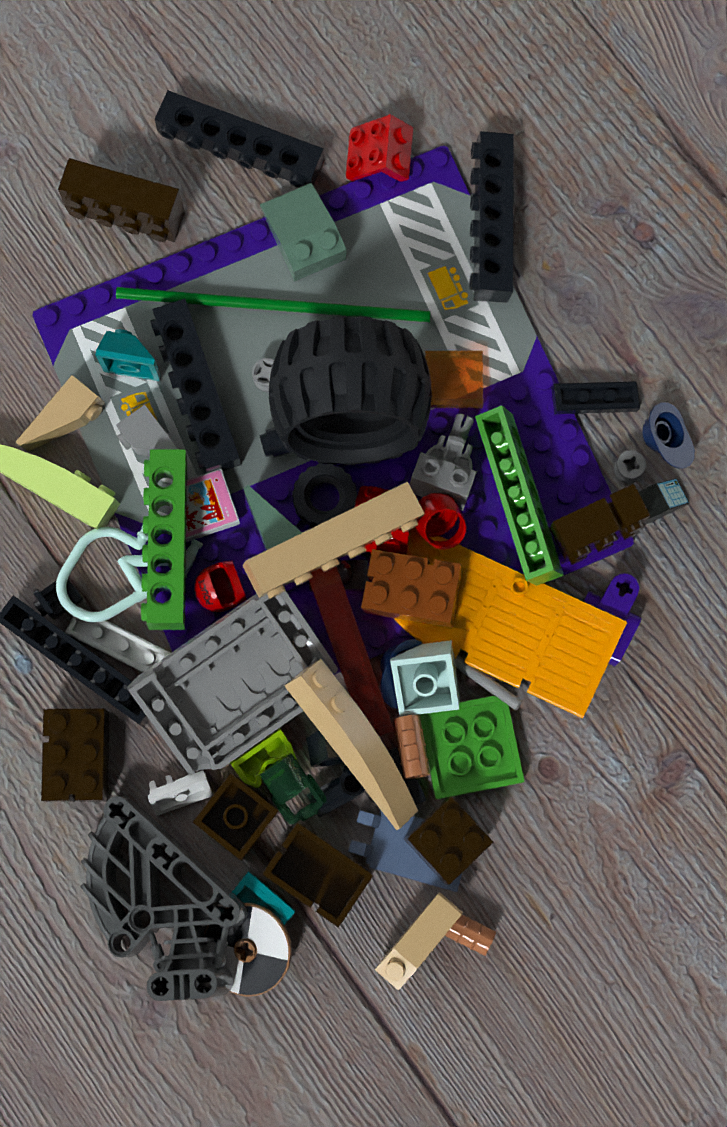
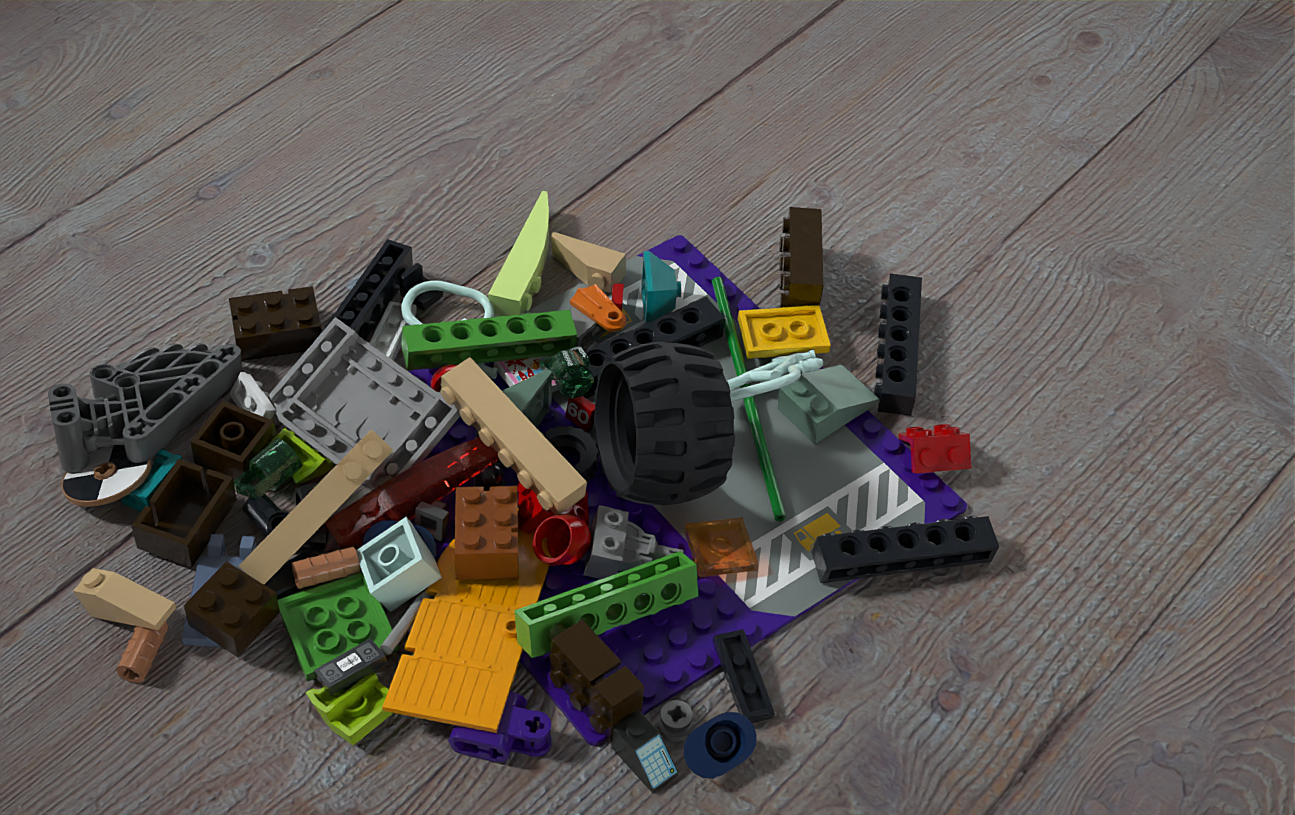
camera: 75 degrees right, 30 degrees down
(127, 399) = (617, 295): none -> red tile
(144, 420) = (598, 307): none -> orange piece
(206, 246) = (783, 331): none -> yellow plate
(235, 468) = (570, 371): none -> clear green piece
(249, 255) = (773, 374): none -> light aqua piece
(270, 468) = (581, 412): none -> red tile
(376, 637) = (433, 518): none -> dark grey tile
(531, 739) = (350, 666): none -> tile
(558, 745) = (354, 709): none -> lime plate

